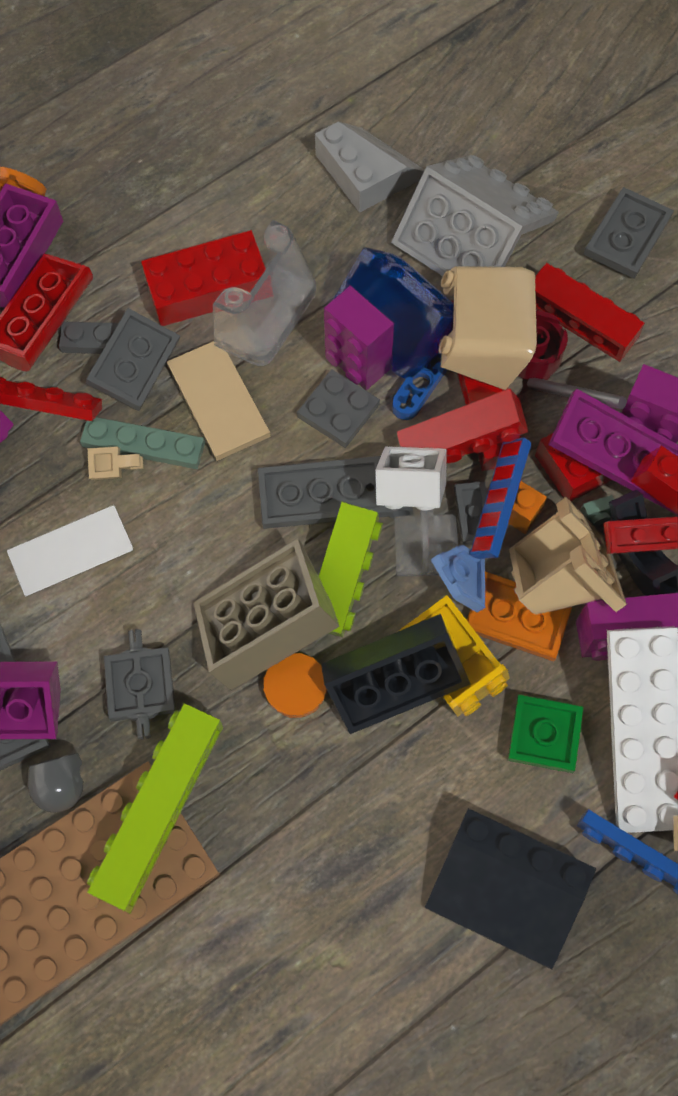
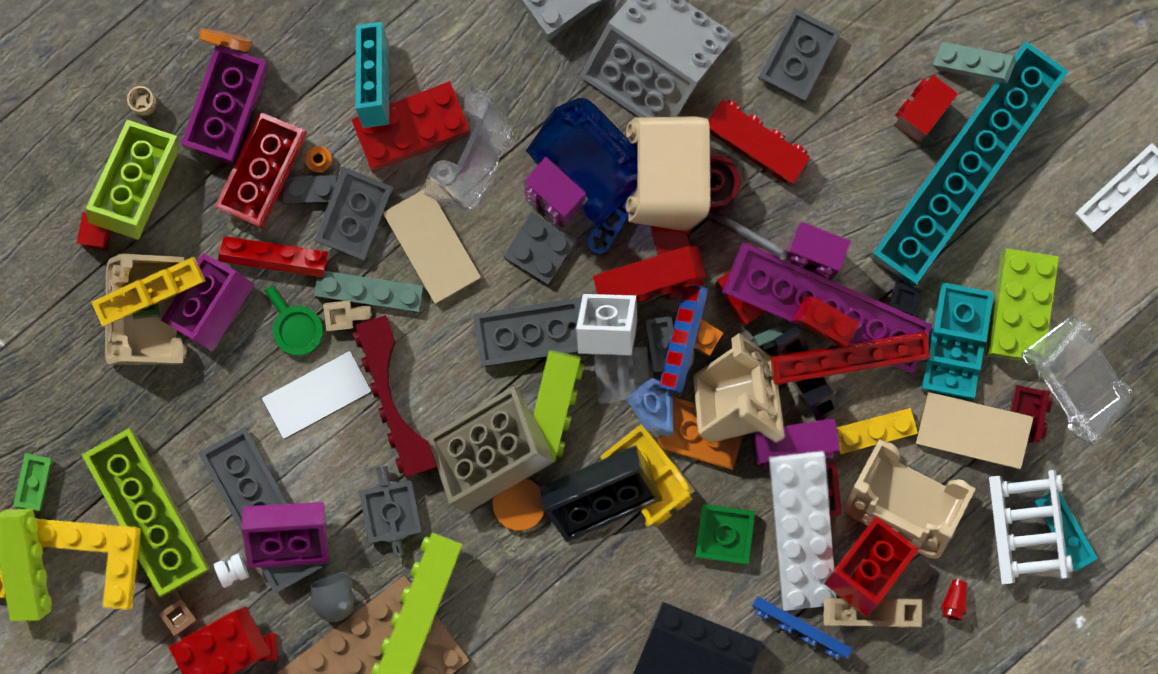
camera: 10 degrees left, 15 degrees up
(55, 477) = (296, 328): none -> green piece
(103, 314) = (318, 167): none -> orange plate
(167, 218) = (372, 75): none -> teal brick
(174, 612) = (378, 345): none -> dark red arch

